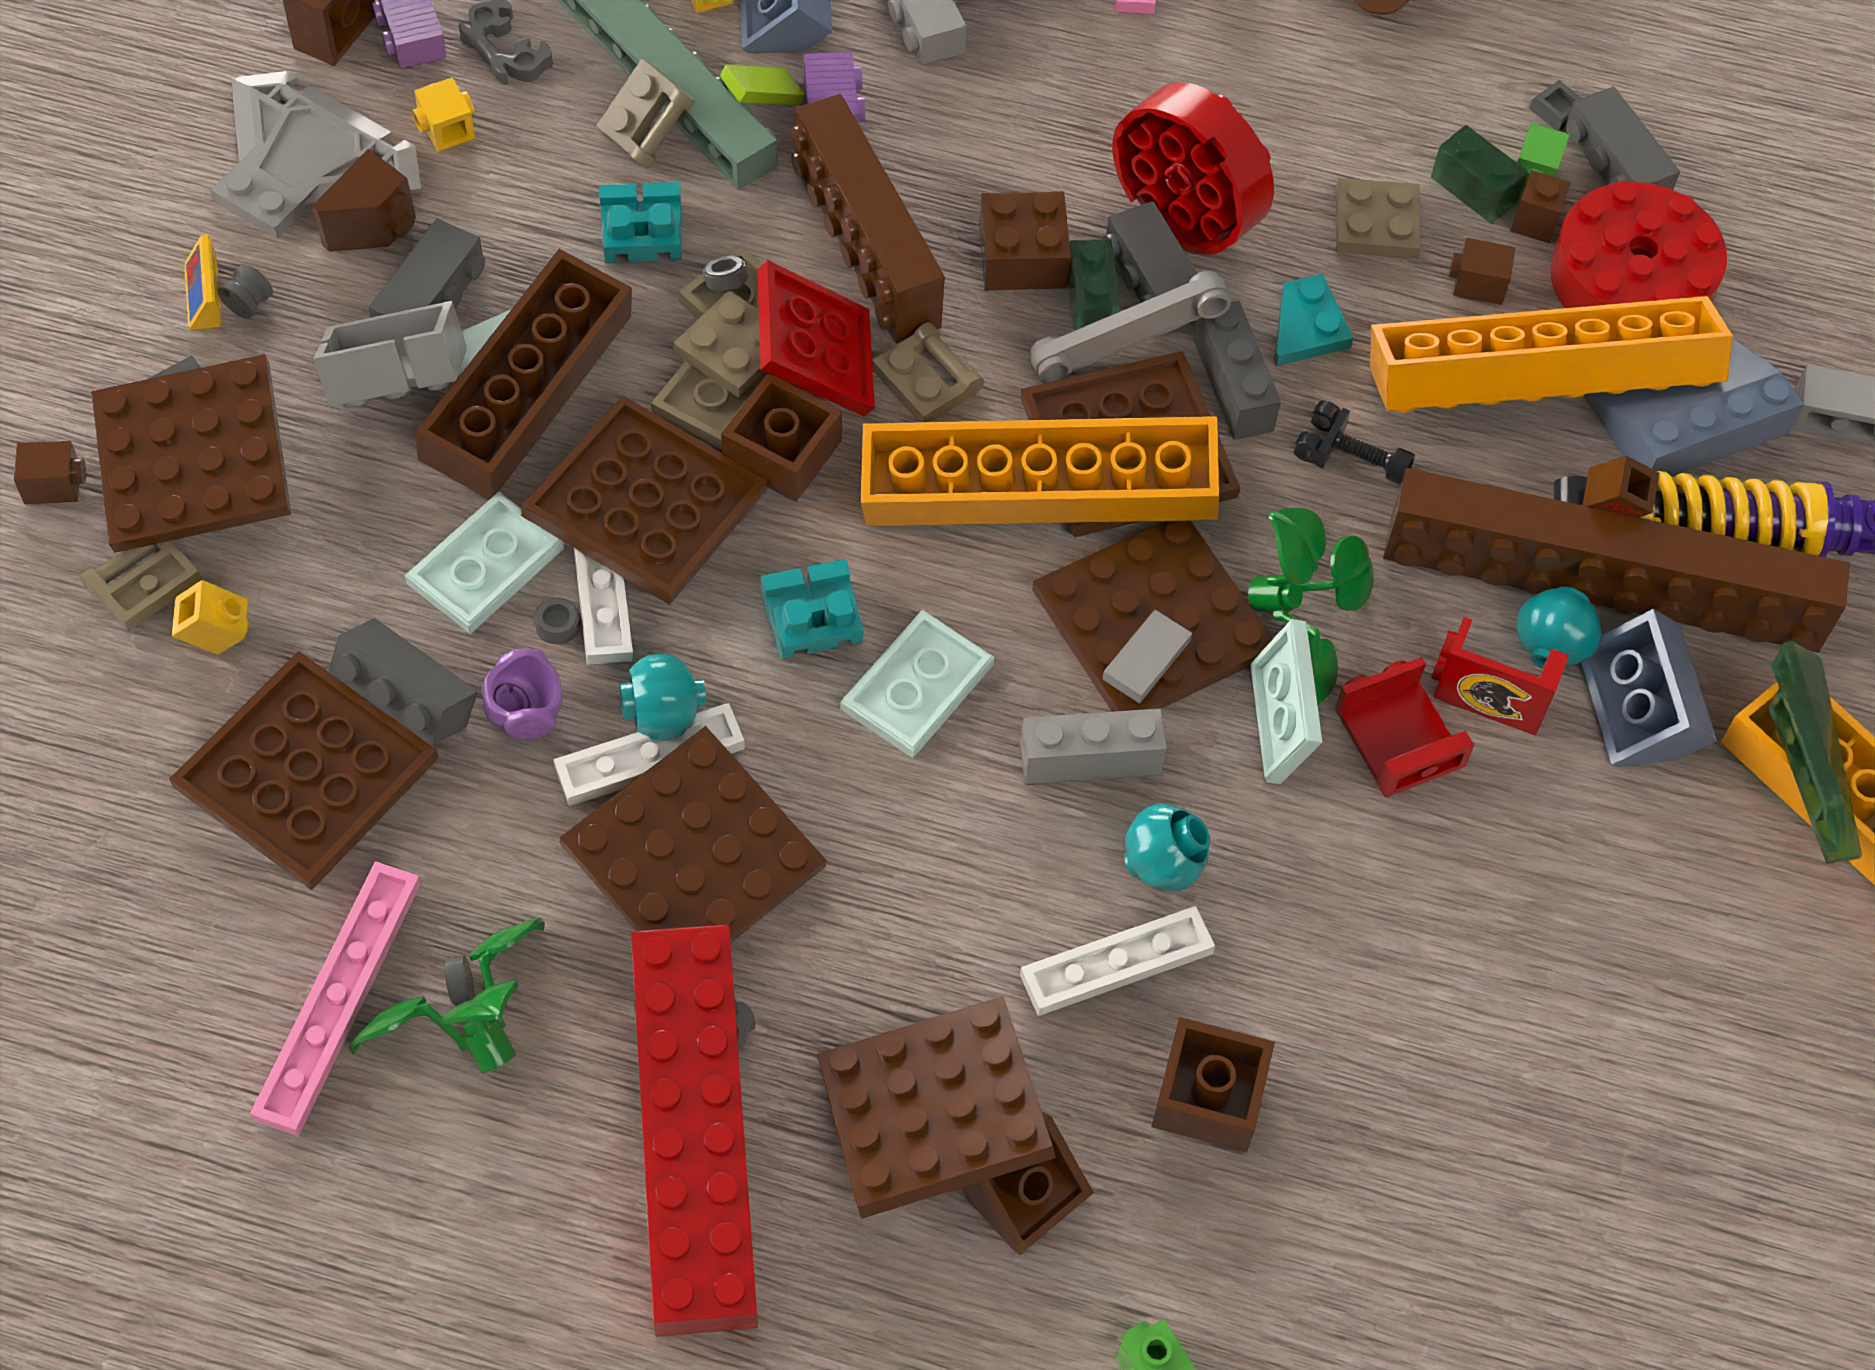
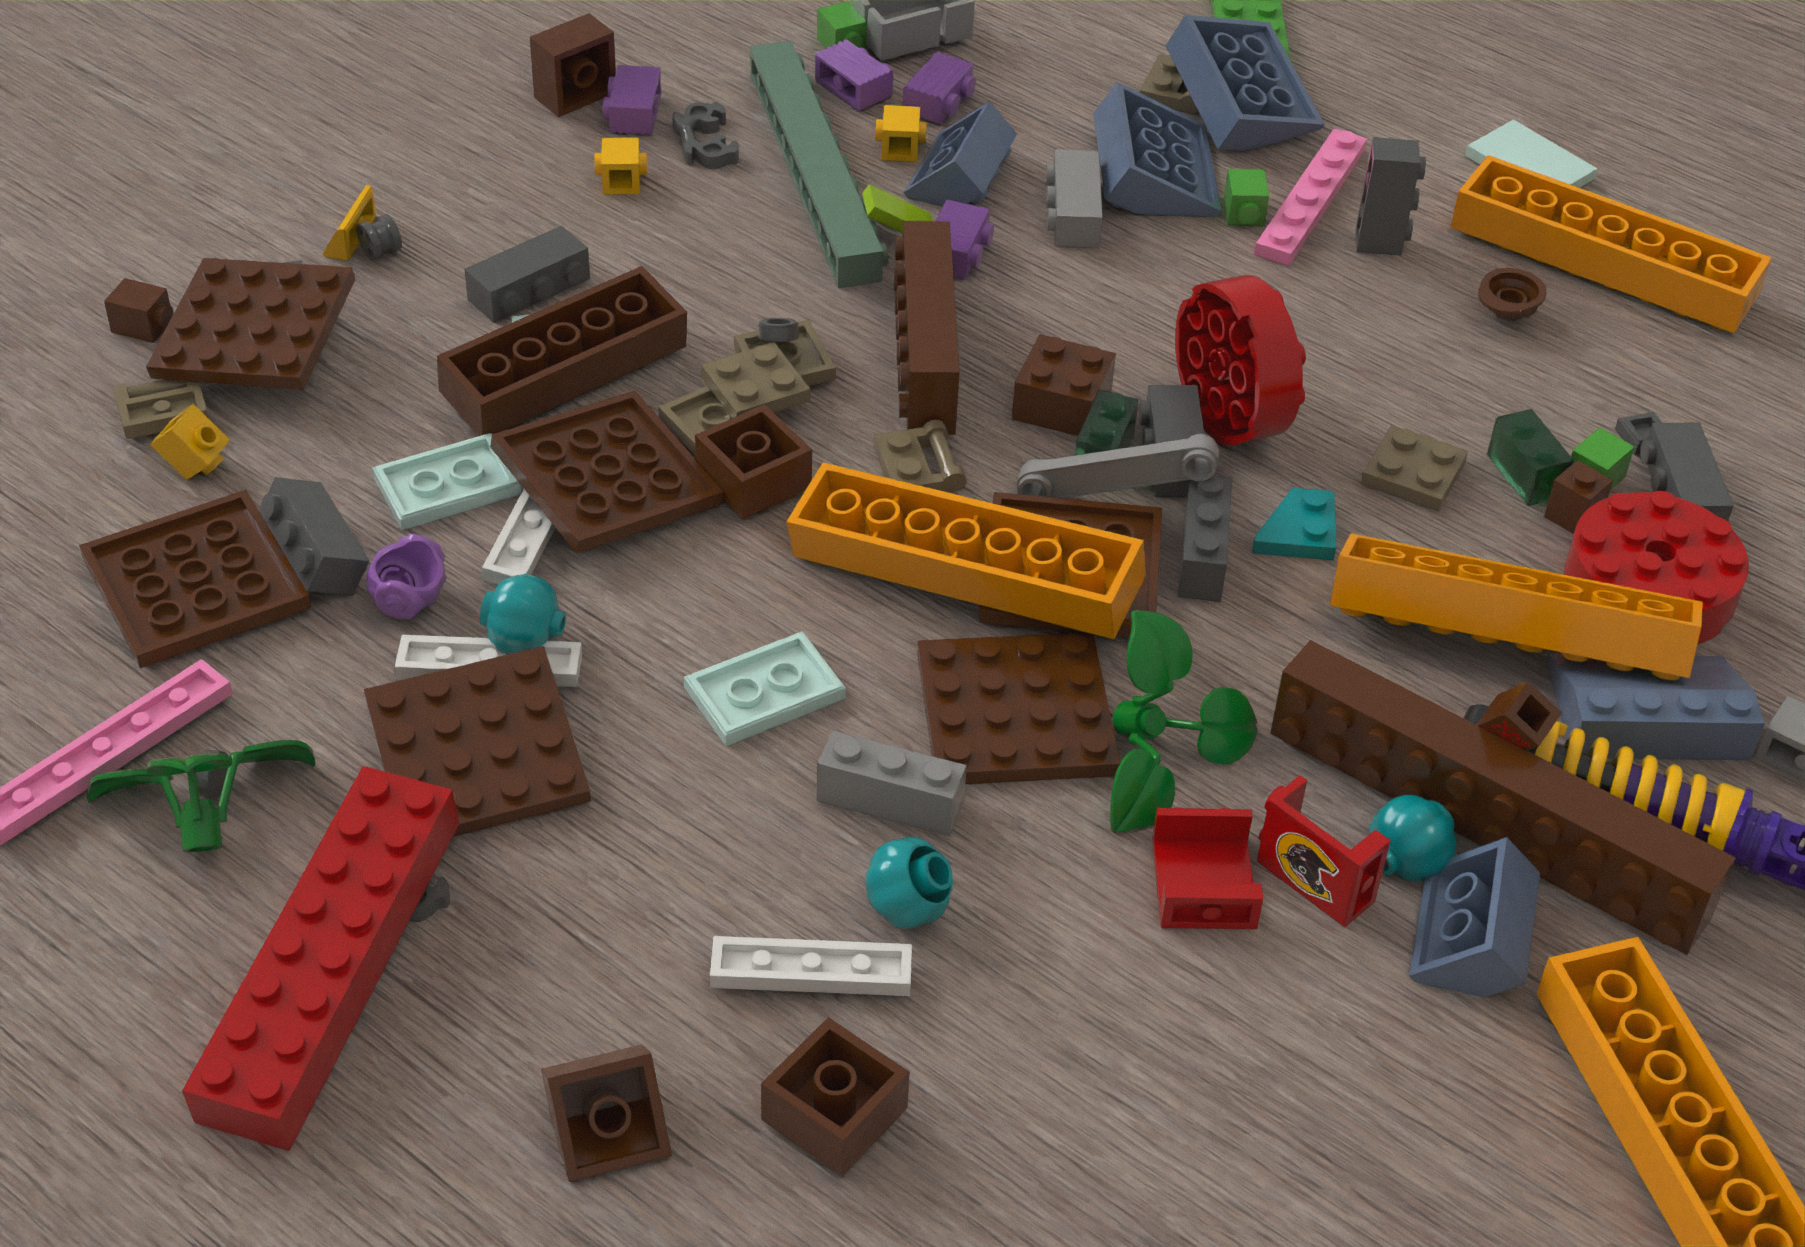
camera: 25 degrees right, 15 degrees down
(297, 150) = (495, 163): light grey plate -> none
(365, 207) = (505, 200): reddish brown slope -> none
(390, 355) = (454, 302): light grey piece -> none
(557, 621) = (476, 540): dark grey tile -> none
(638, 106) = (784, 204): plate -> none
(641, 226) = (735, 281): teal hips -> none
(811, 614) = (702, 601): teal hips -> none
(815, 338) = (824, 395): red plate -> none
(934, 1107) = (553, 1012): reddish brown plate -> none
(1147, 656) = (983, 726): light grey tile -> none
(1286, 702) = (1093, 802): light aqua tile -> none
(1333, 420) = (1276, 618): black bar -> none
(1482, 270) = (1493, 531): reddish brown brick -> none
(1813, 750) = (1619, 1005): clear green wedge -> none

